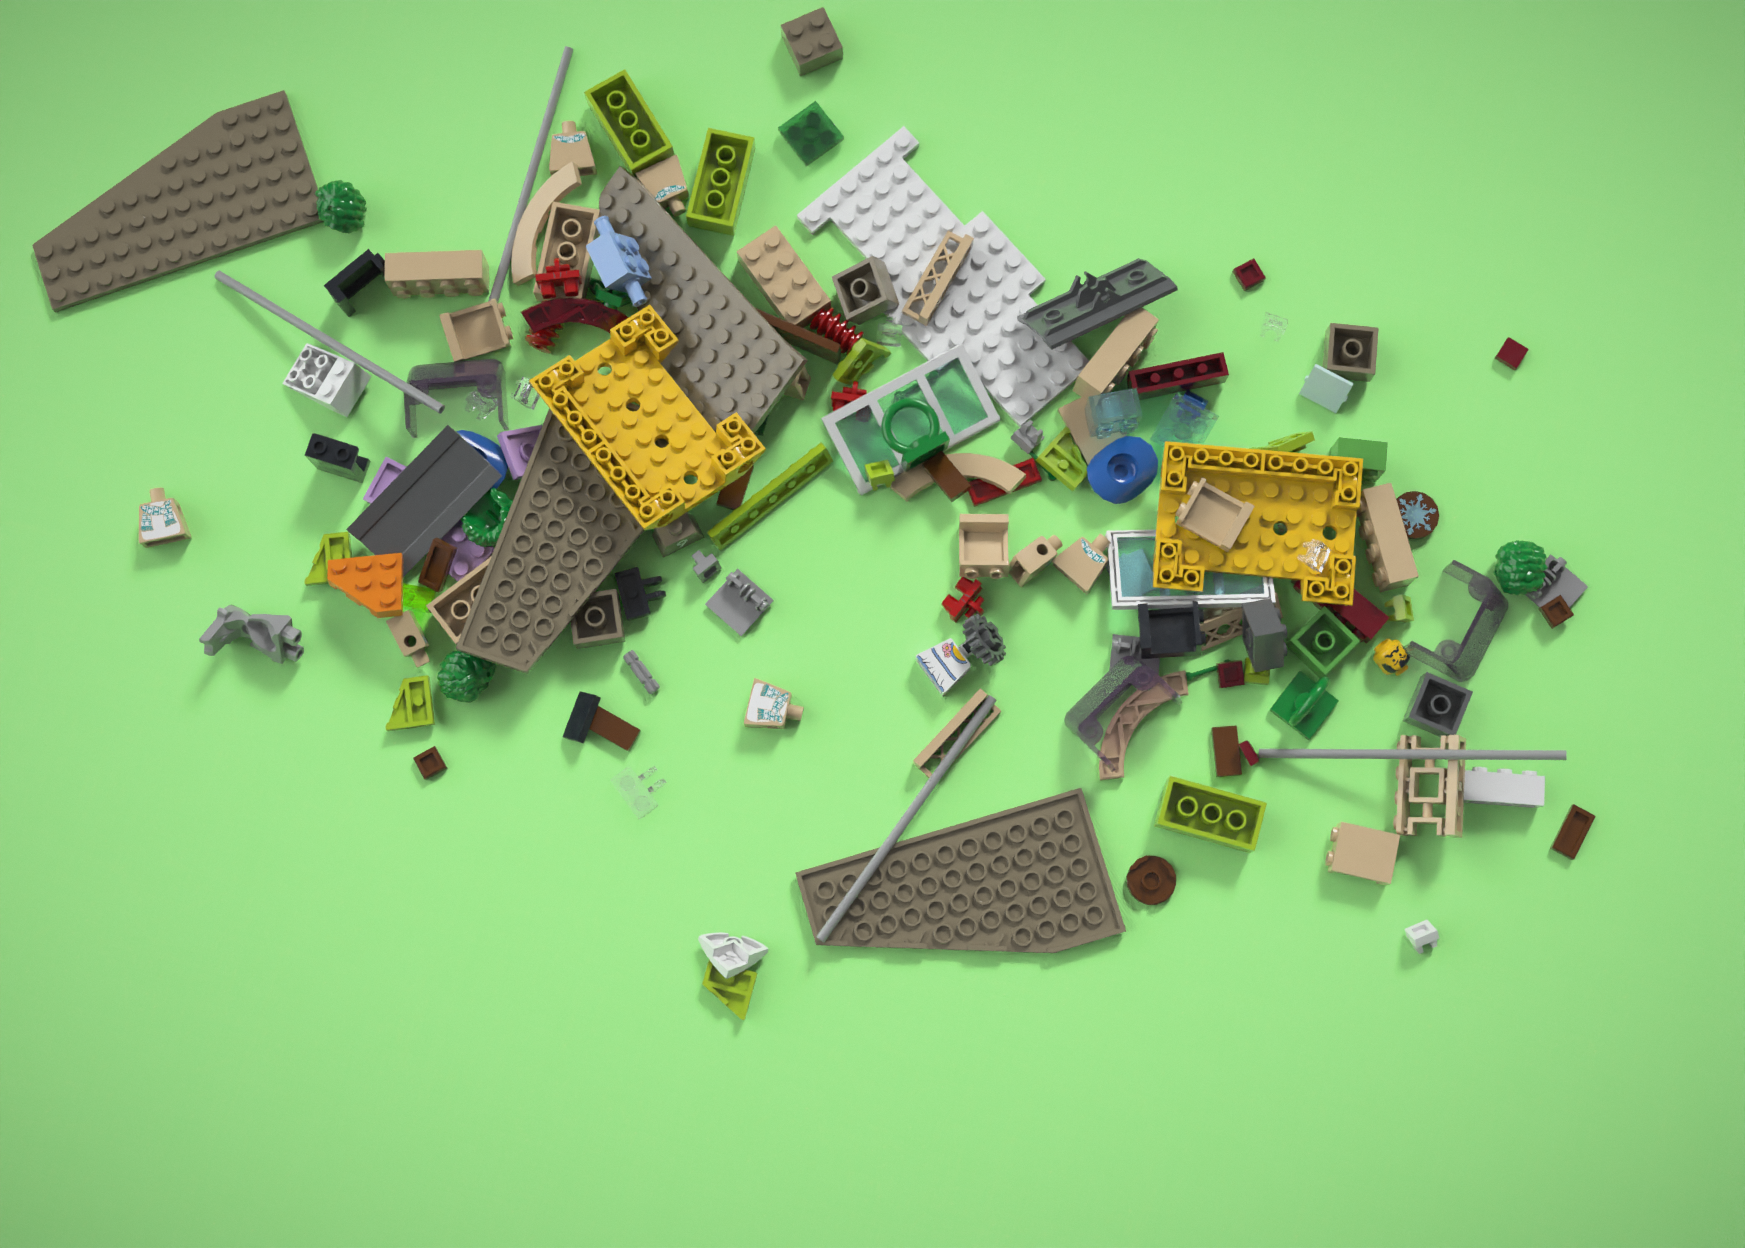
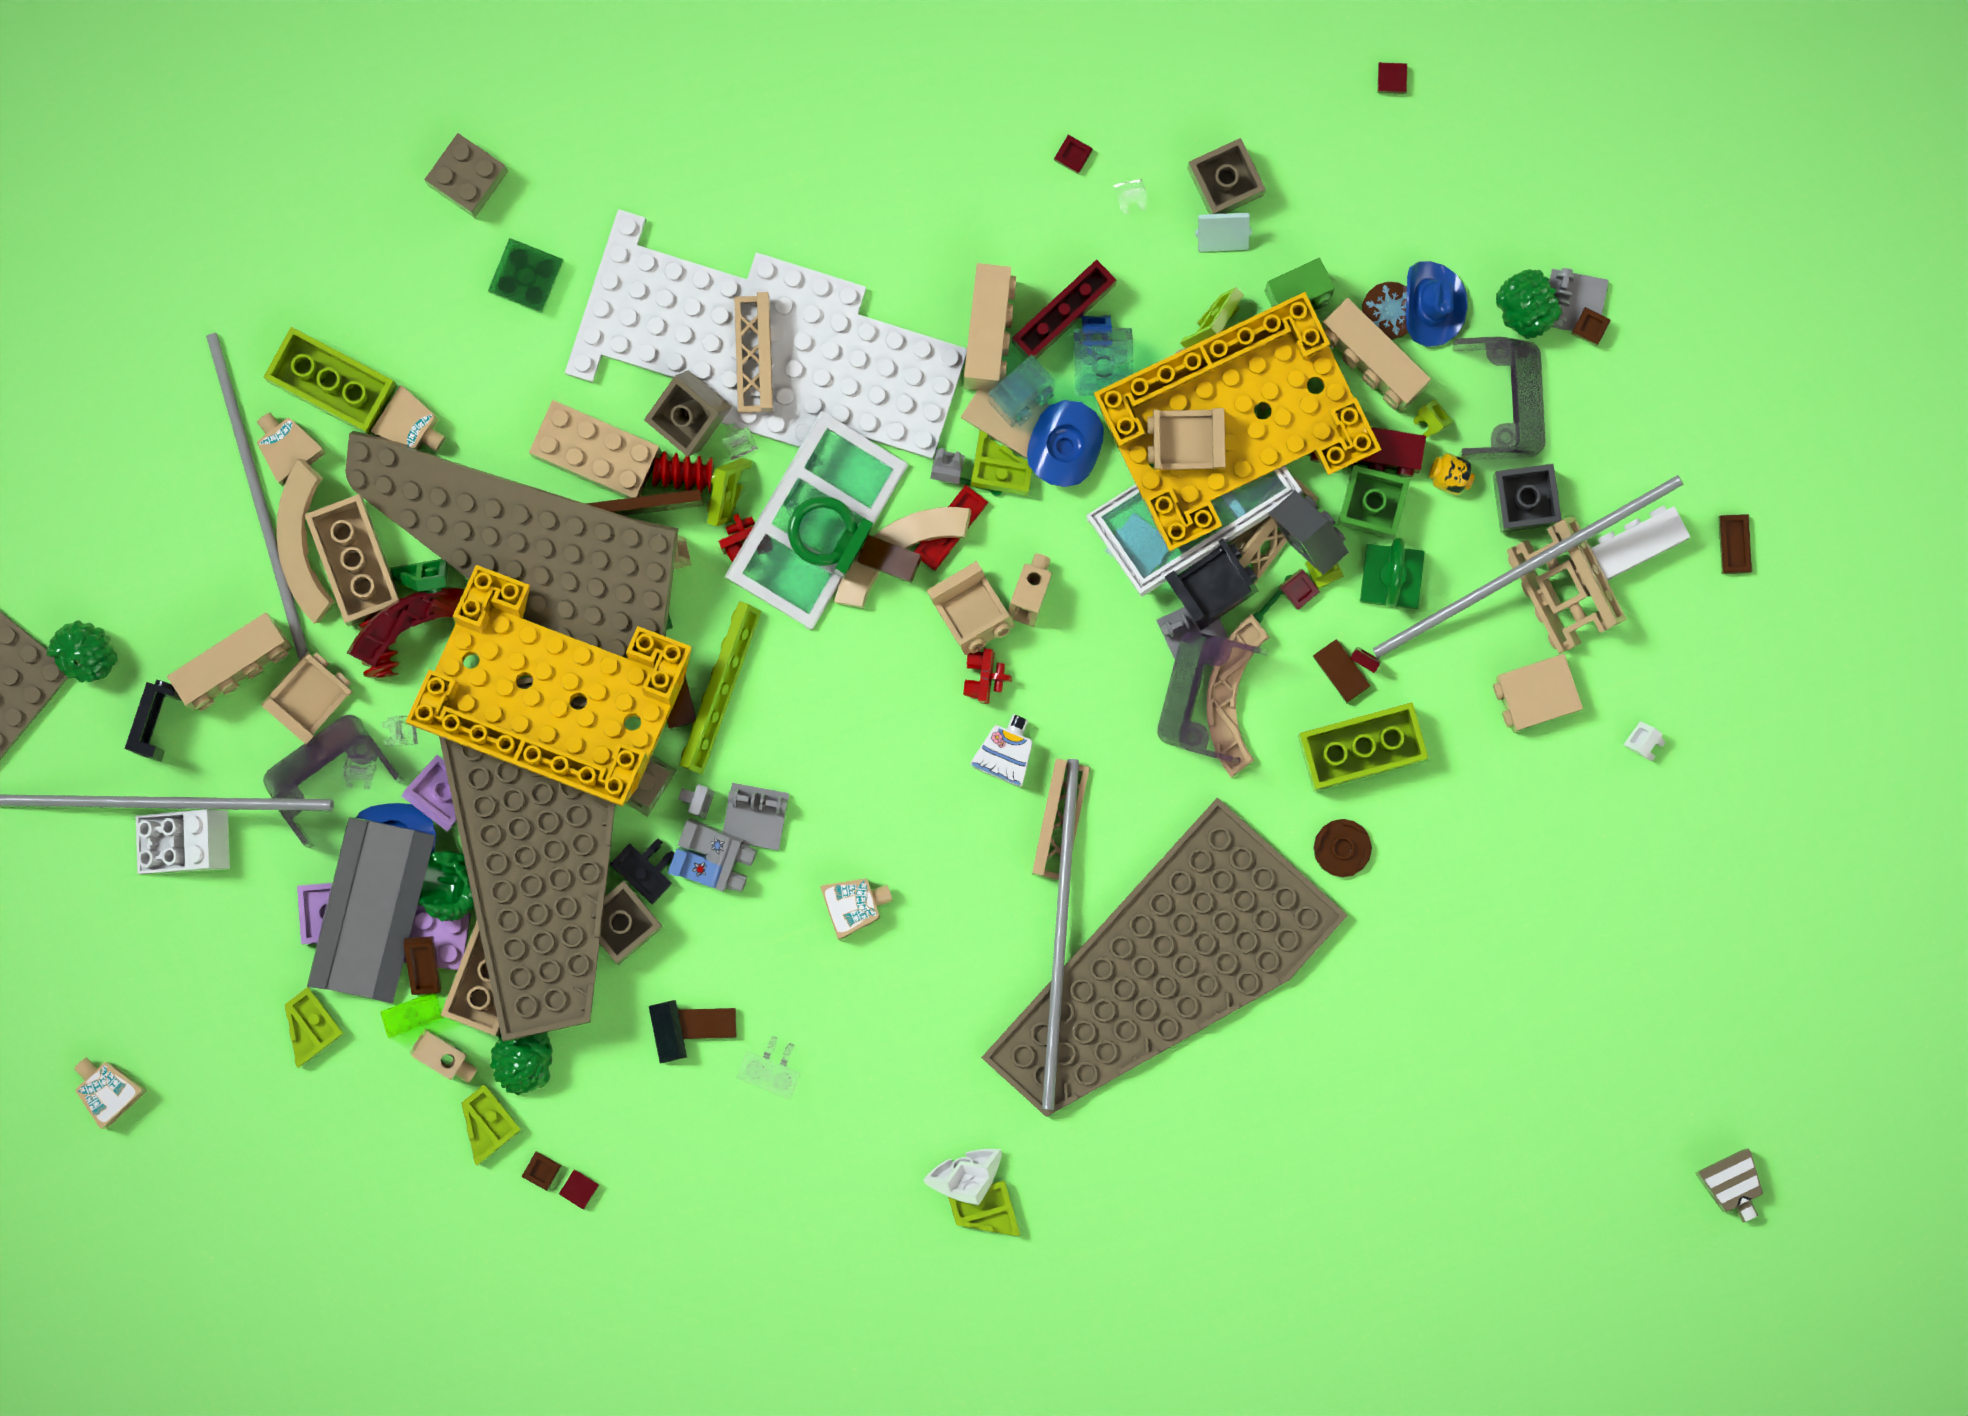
camera: 30 degrees left, 5 degrees up
(269, 633) = (294, 1142): light grey hips -> none
(337, 458) = (251, 918): black panel -> none
(371, 582) = (368, 1025): orange plate -> none
(448, 792) = (578, 1189): none -> dark red tile
(558, 276) = (356, 605): red hips -> none
(619, 262) = (415, 538): light blue brick -> none
(641, 672) = (699, 948): light grey axle -> none
(691, 620) = (721, 856): none -> light grey hips
(720, 181) = (464, 386): lime brick -> none
(879, 473) = (819, 597): lime tile -> none
(984, 639) = (1030, 706): dark grey gear -> none
(1083, 562) = (1082, 563): tan torso -> none
(1097, 302) = (936, 284): dark grey hinge -> none
(1316, 555) = (1315, 420): clear tile -> none
(1449, 529) = (1434, 303): none -> blue hat

